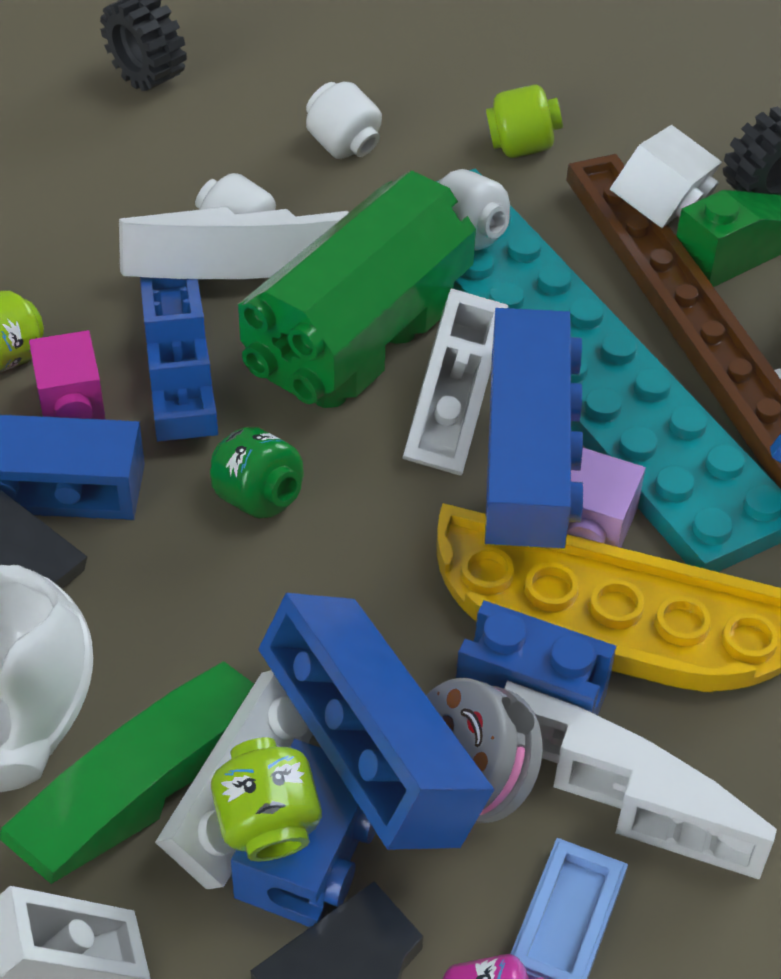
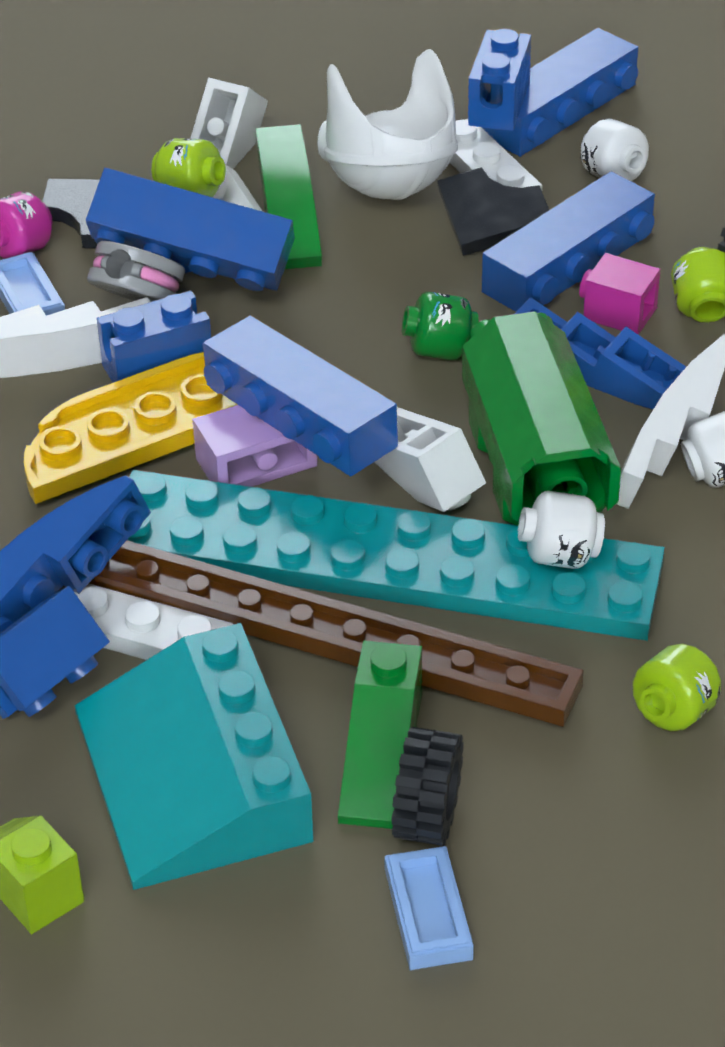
camera: 135 degrees right, 5 degrees down
(666, 176) = (479, 687): white brick -> none

